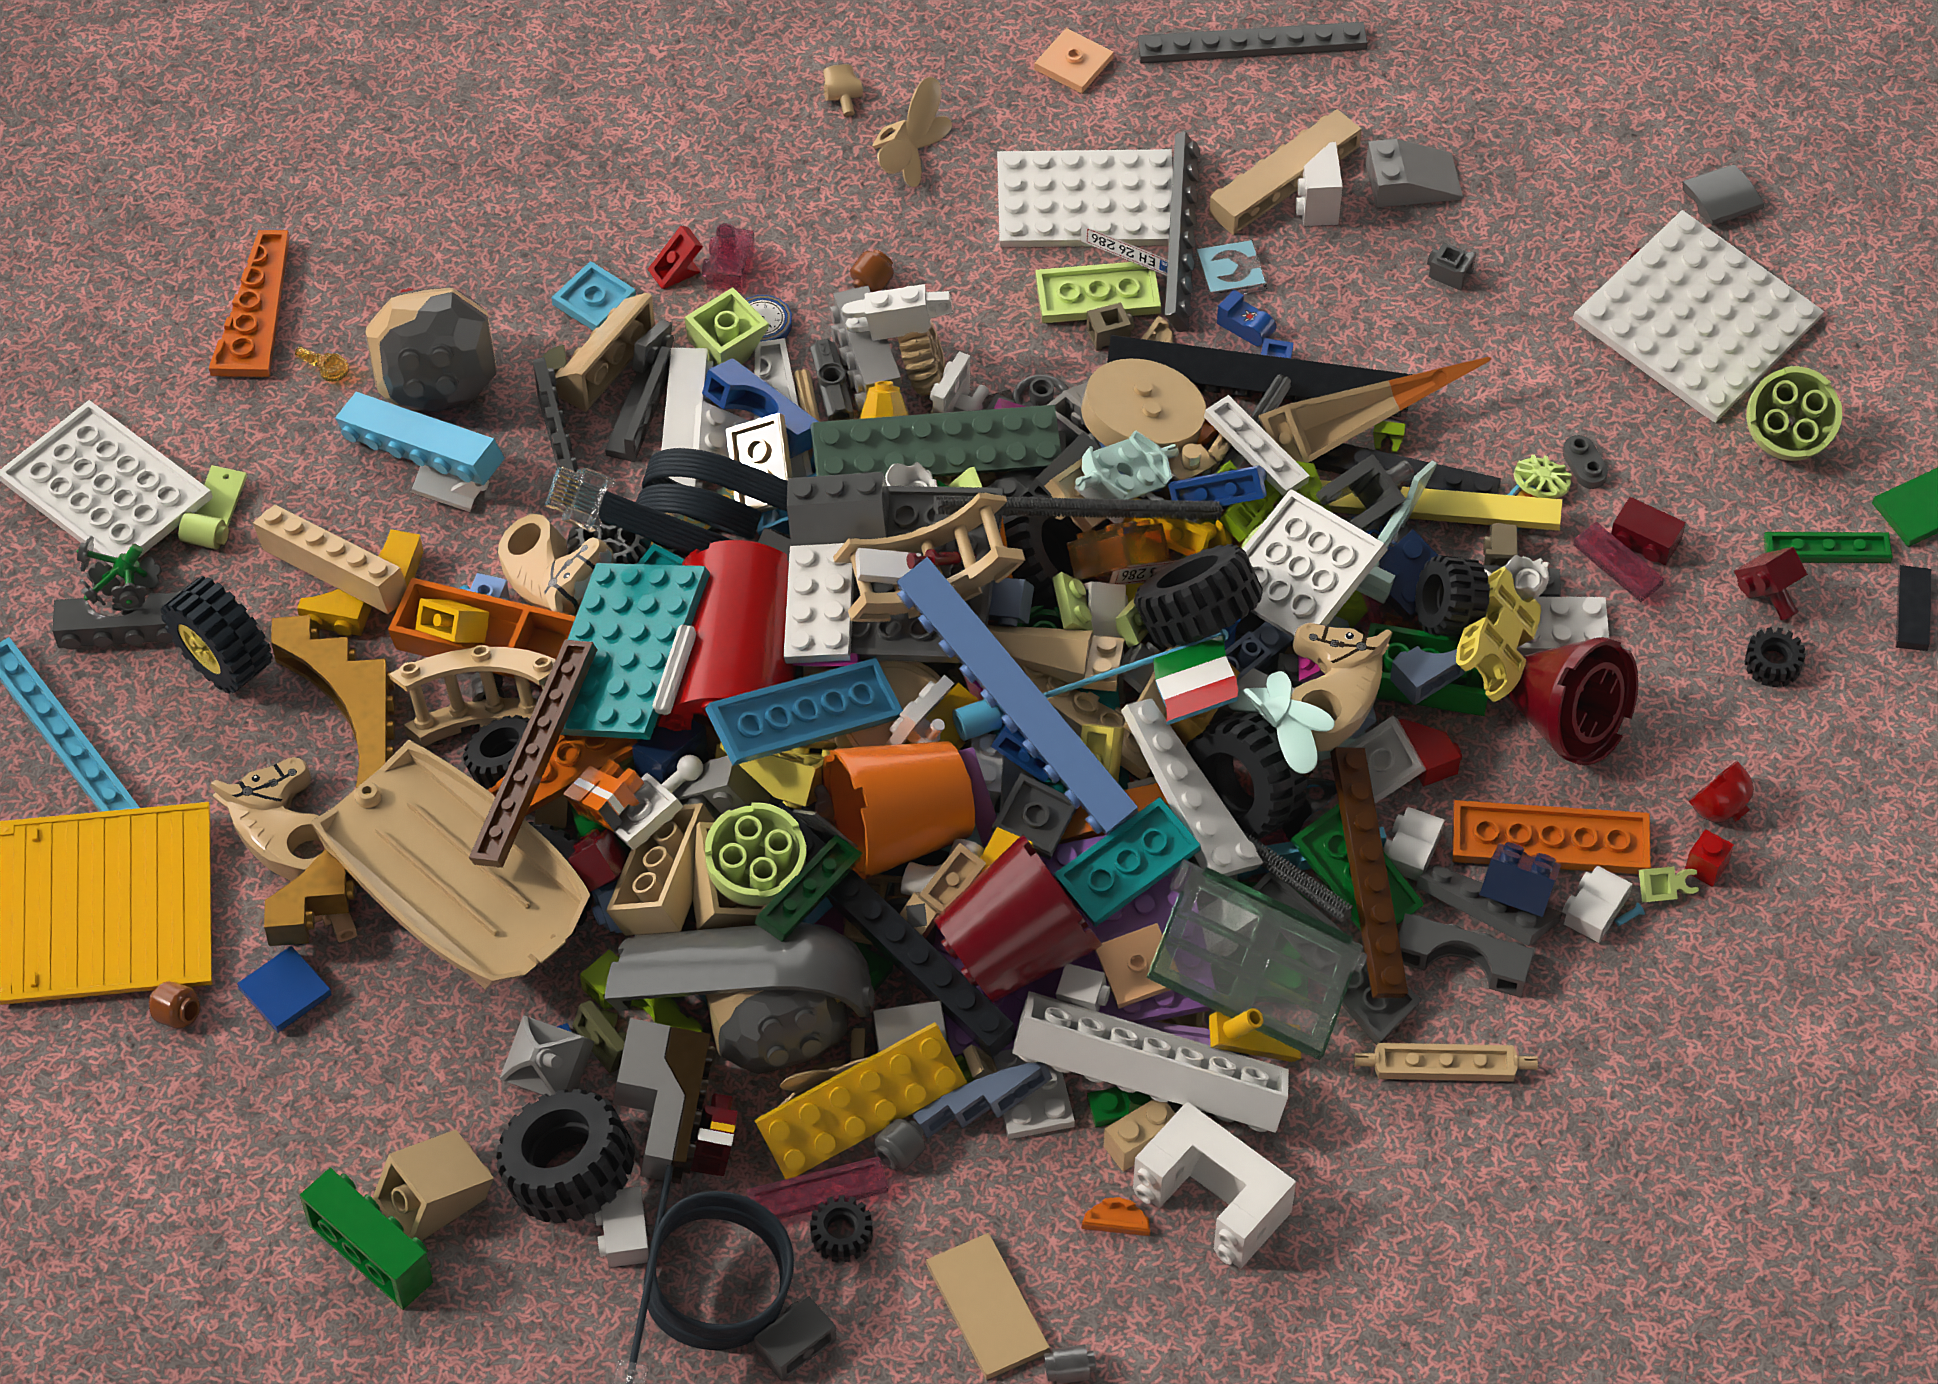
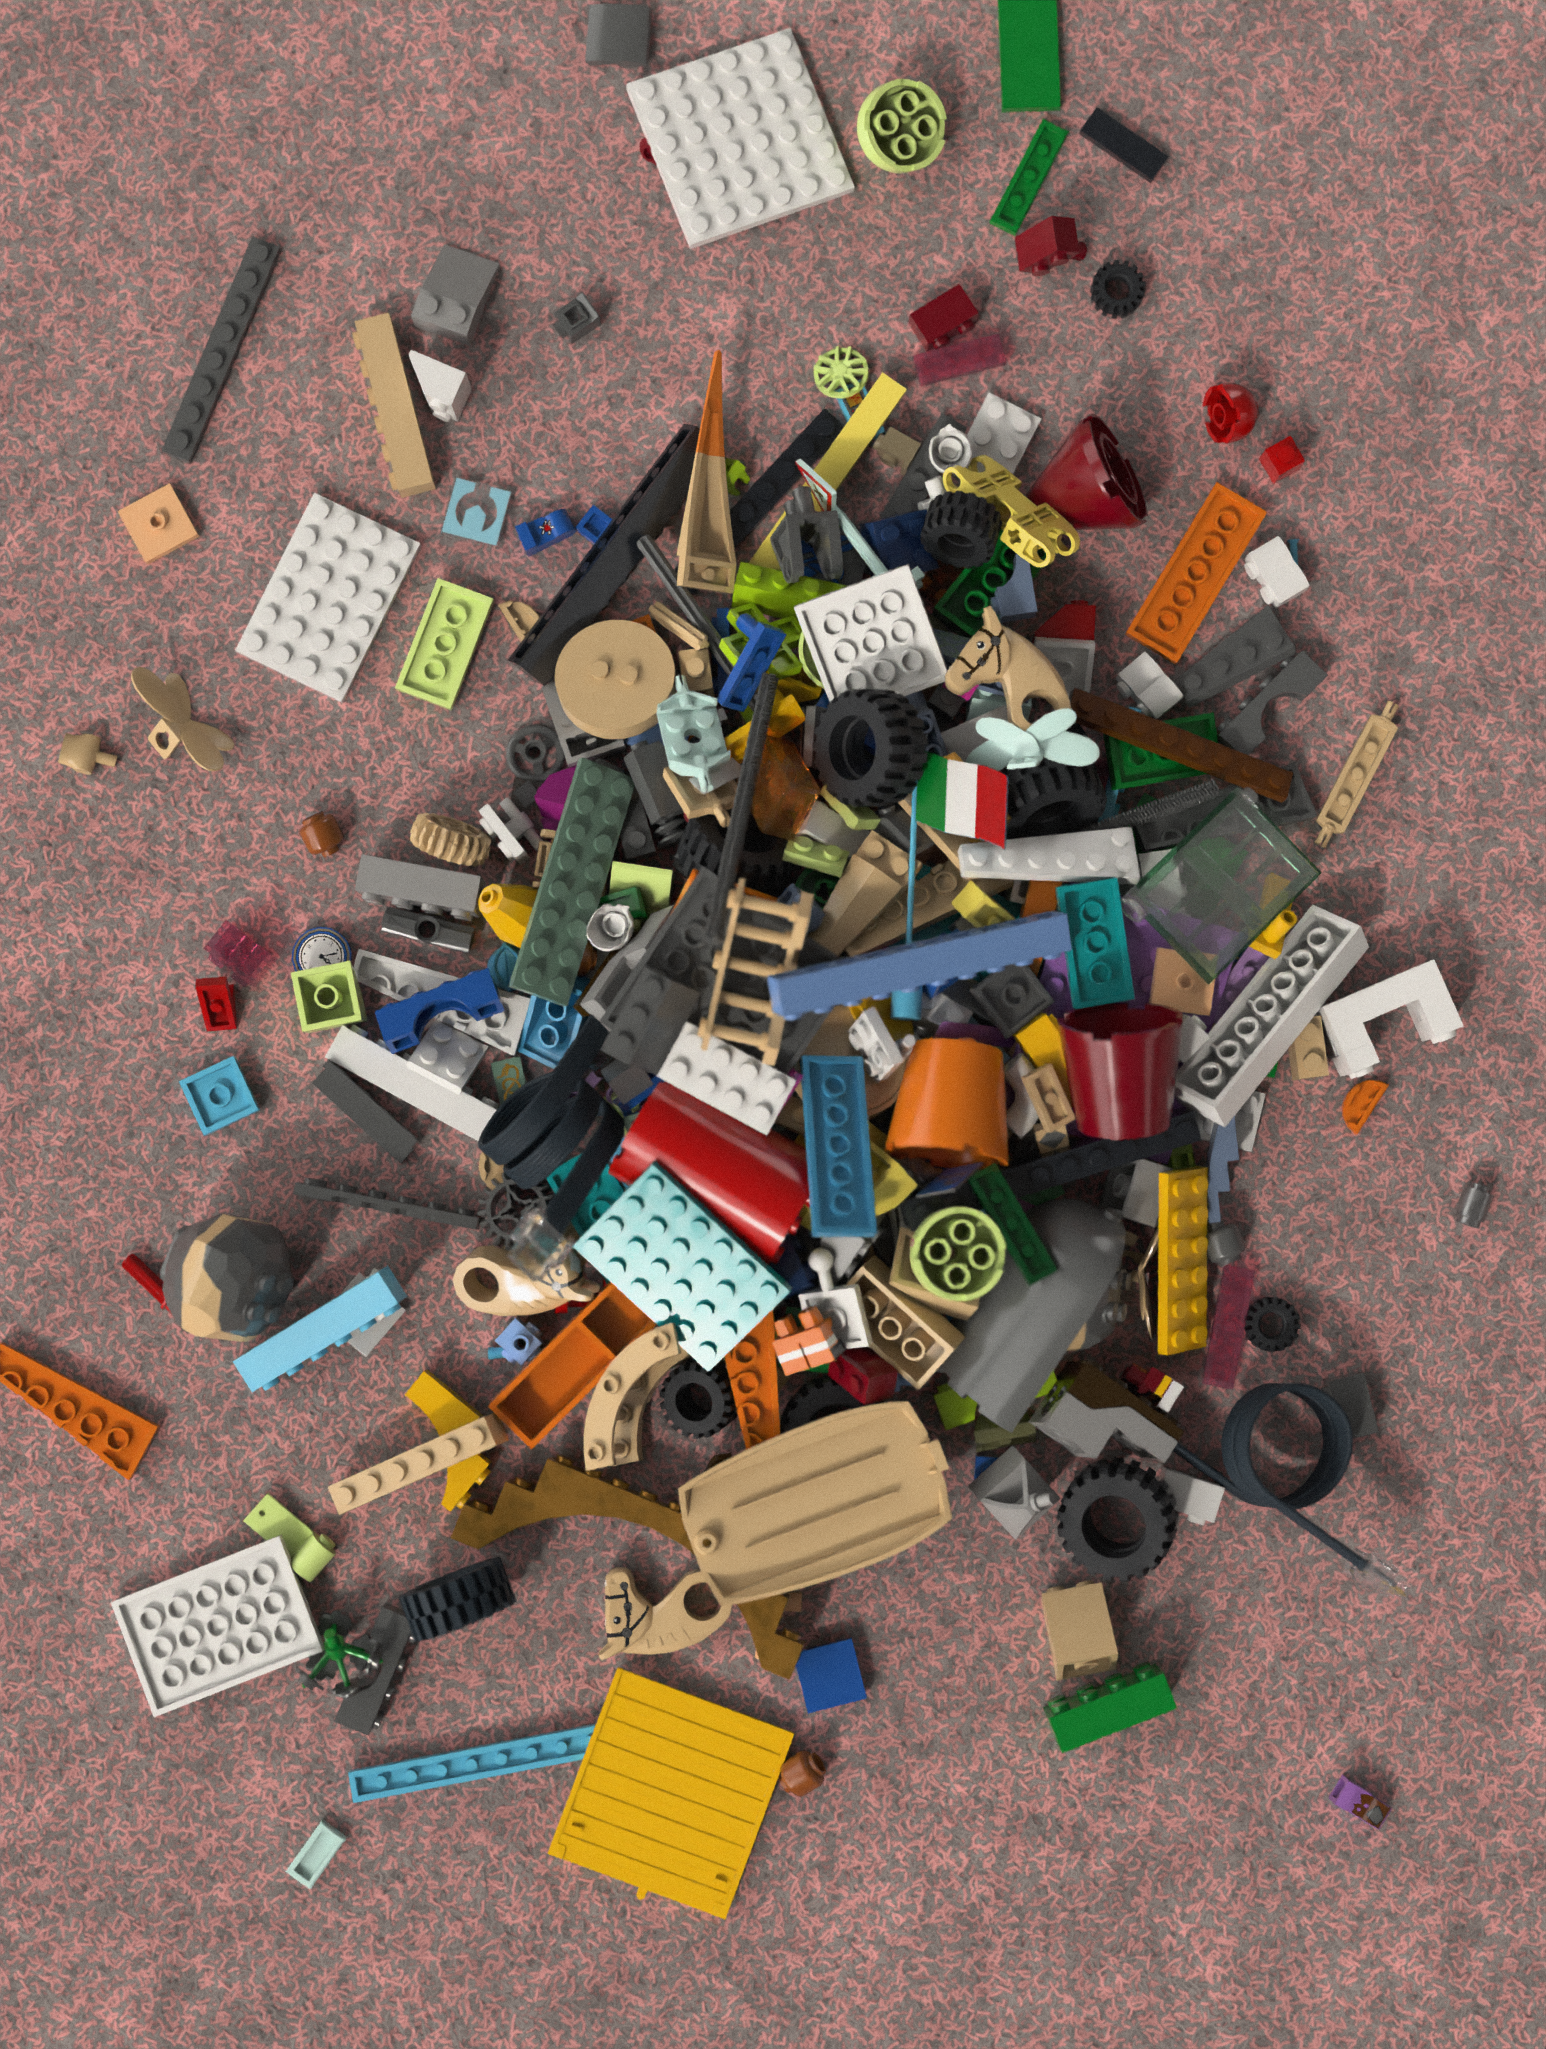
camera: 65 degrees left, 30 degrees up
(331, 366) = (179, 1366): clear yellow plate -> none
(452, 620) = (554, 1391): yellow brick -> none
(533, 754) = (754, 1390): reddish brown plate -> none
(555, 358) = (275, 1164): olive tile -> none
(605, 352) = (293, 1115): tan slope -> none
(649, 345) = (307, 1063): dark grey plate -> none
(674, 669) = (742, 1238): white axle -> none
(762, 446) = (504, 1041): tile -> none
(806, 392) = (437, 960): tan axle -> none
(881, 565) = (742, 1008): white tile -> none
(896, 311) = (420, 848): white hinge -> none
(937, 559) = (755, 965): dark red piece -> none
(979, 1062) = (1193, 1150): tan tile -> none
(987, 1306) = (1389, 1241): tan tile -> none
(1107, 322) = (486, 643): dark tan brick -> none
(1124, 250) = (425, 597): white sticker -> none
(1181, 234) = (422, 537): dark grey plate -> none
(1256, 445) = (713, 605): white plate -> none
(1520, 878) = (1237, 625): dark blue piece -> none
(1583, 459) = (840, 328): dark grey plate -> none
(1662, 884) = (1283, 510): yellowish green plate -> none

